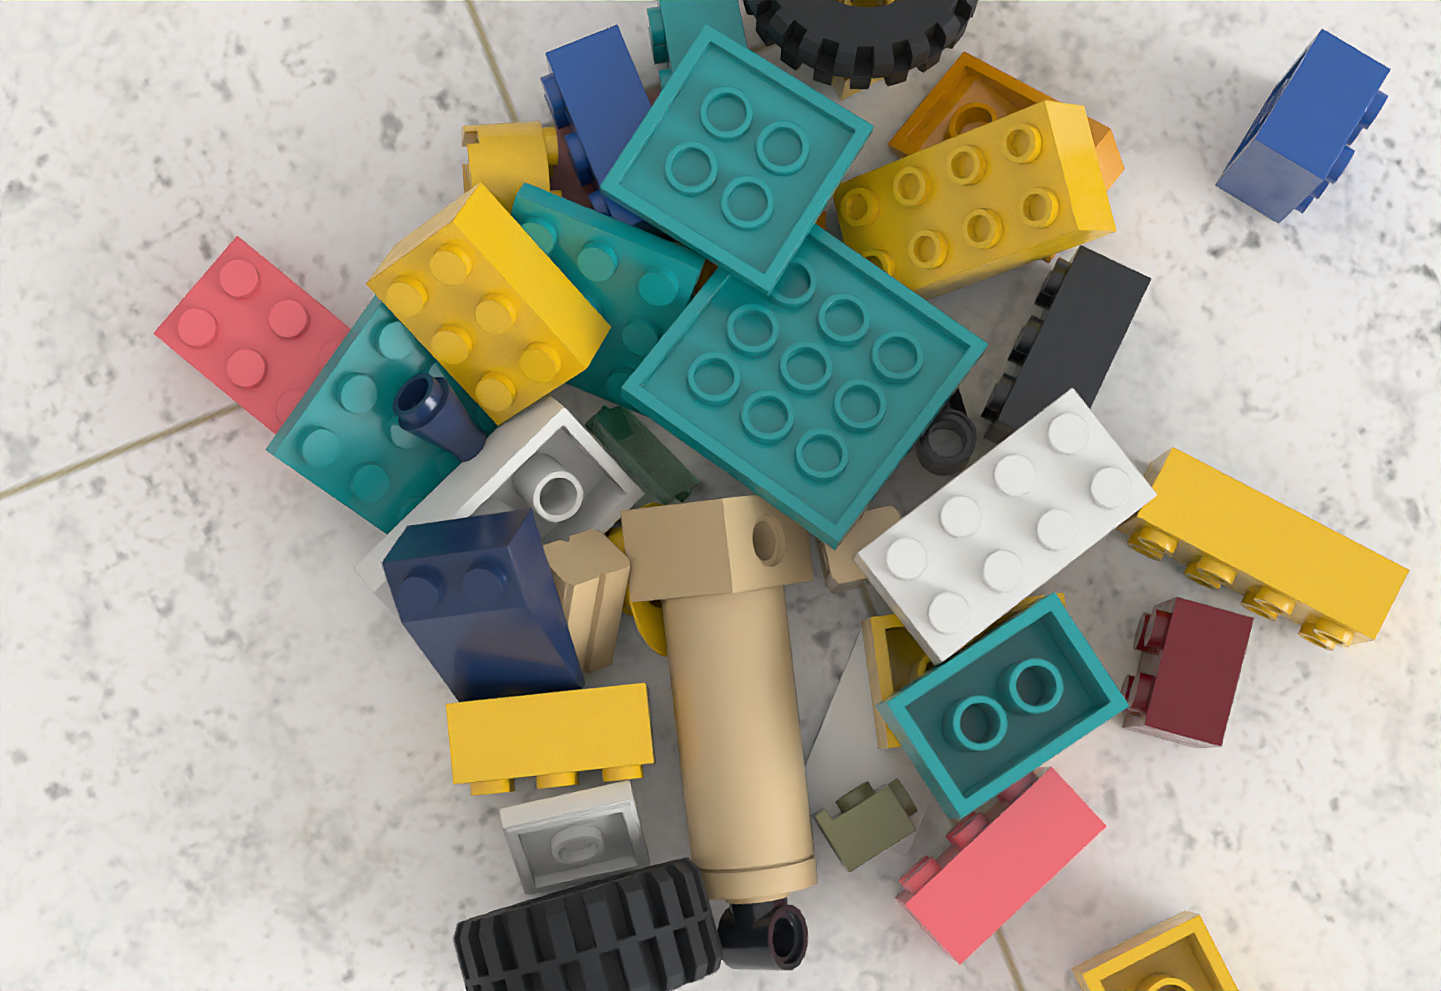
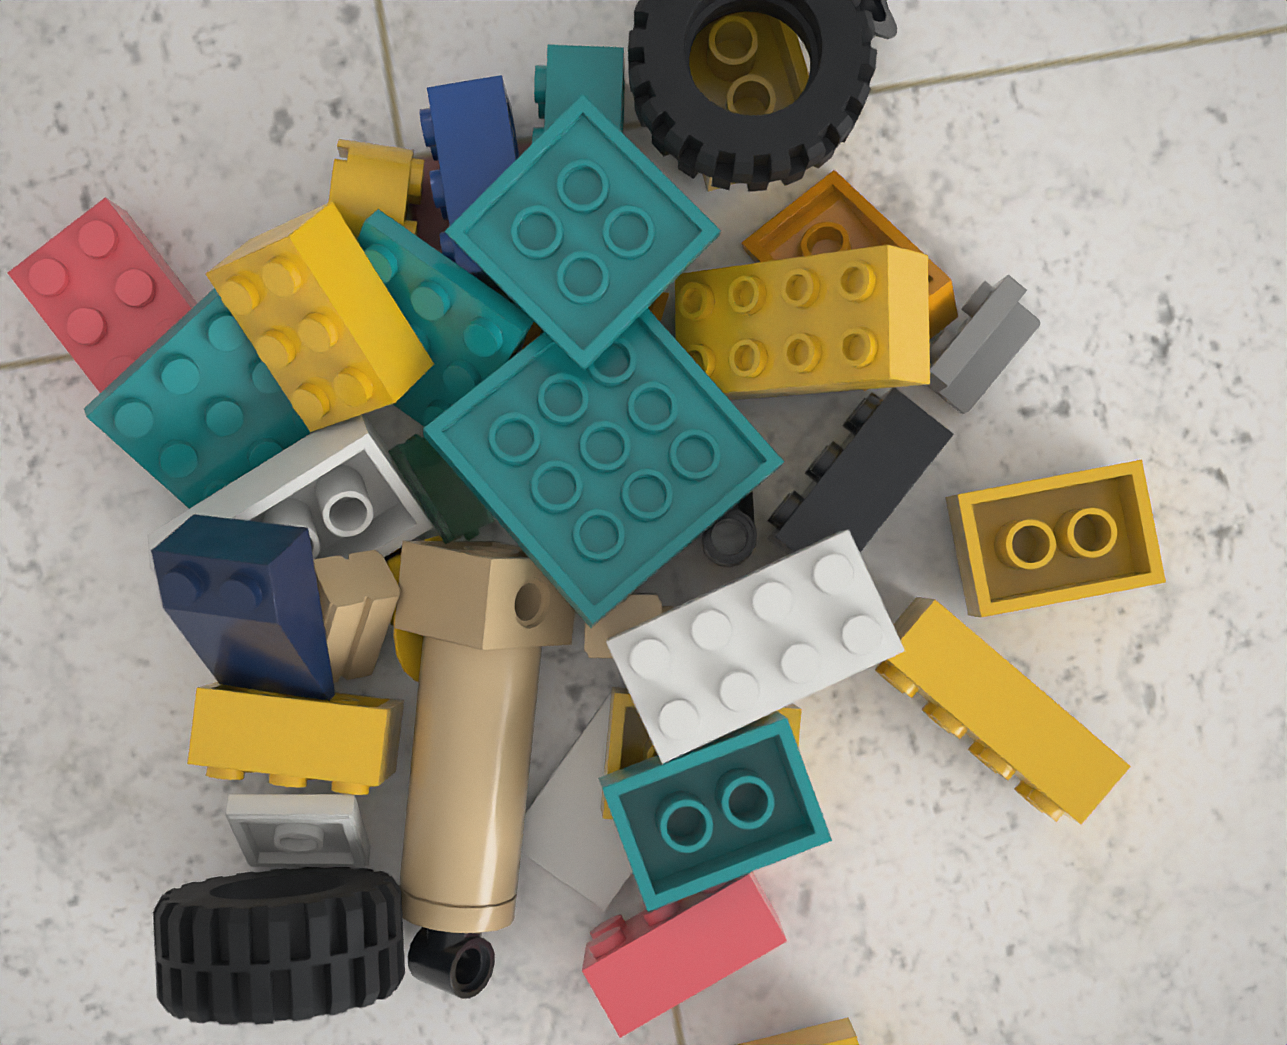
camera: 25 degrees right, 5 degrees up
(435, 414) = (250, 411): dark blue cone -> none
(867, 822) = (570, 877): olive brick -> none
(1156, 190) = (982, 347): none -> light grey bracket
(1186, 672) = (898, 809): dark red brick -> none
(1276, 366) = (1055, 539): none -> yellow brick
(1304, 128) = (1138, 318): blue brick -> none

